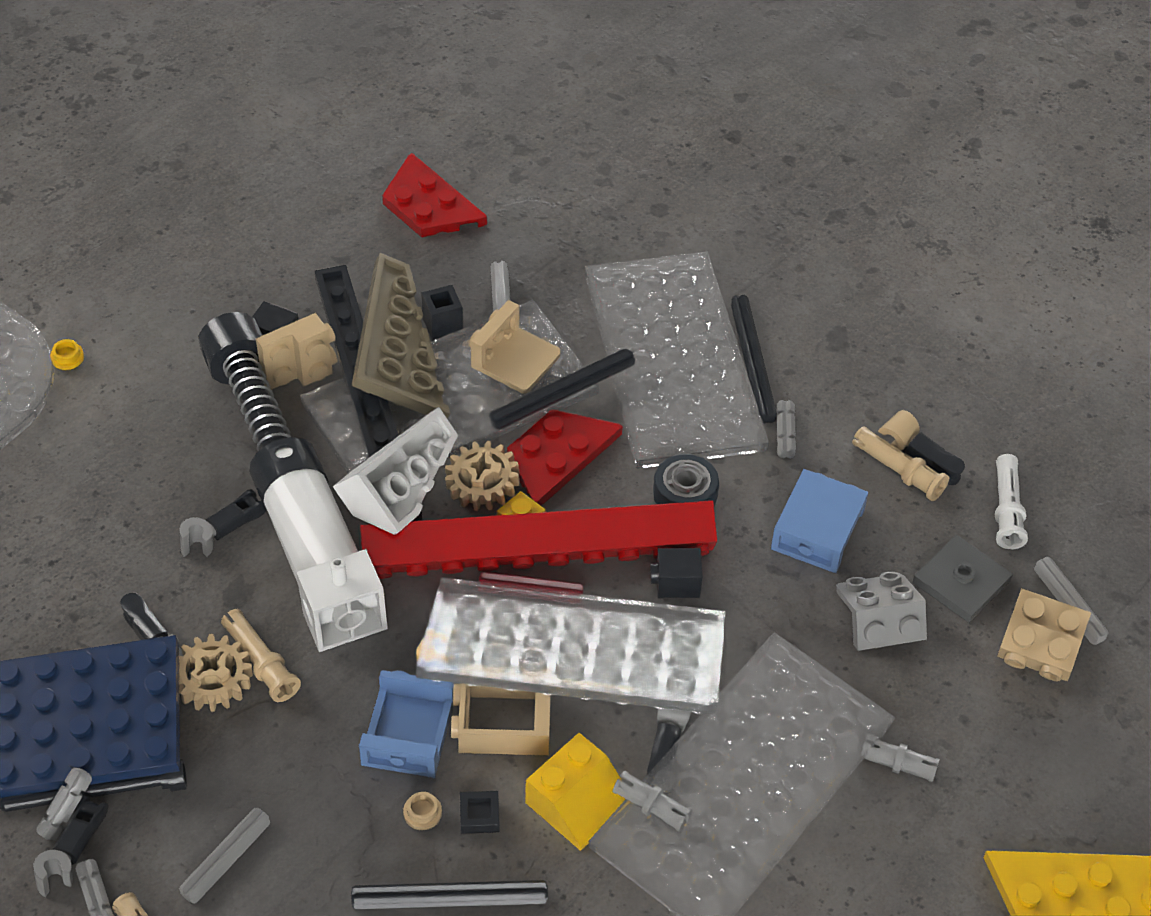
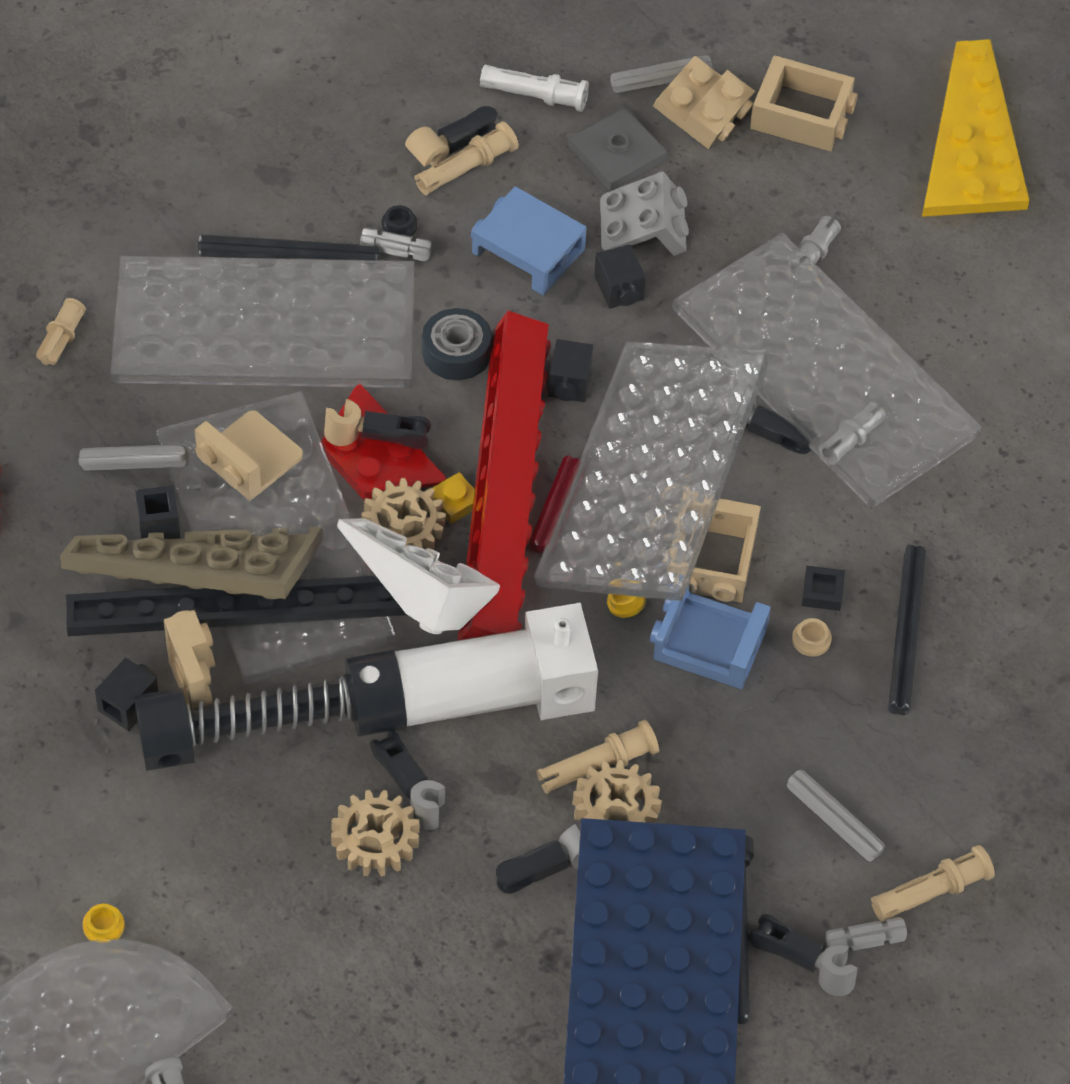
camera: 80 degrees left, 5 degrees up
(64, 804) = (764, 948): light grey axle -> none
(161, 505) = (374, 836): none -> tan gear
(561, 389) = (308, 420): black axle -> none
(566, 432) = (375, 426): none -> piece
(575, 790) = (811, 504): yellow slope -> none
(619, 230) = (60, 331): none -> tan axle
(801, 596) = (619, 276): none -> black brick
(810, 426) = (399, 220): none -> black plate
(1080, 691) = (796, 124): none -> tan window

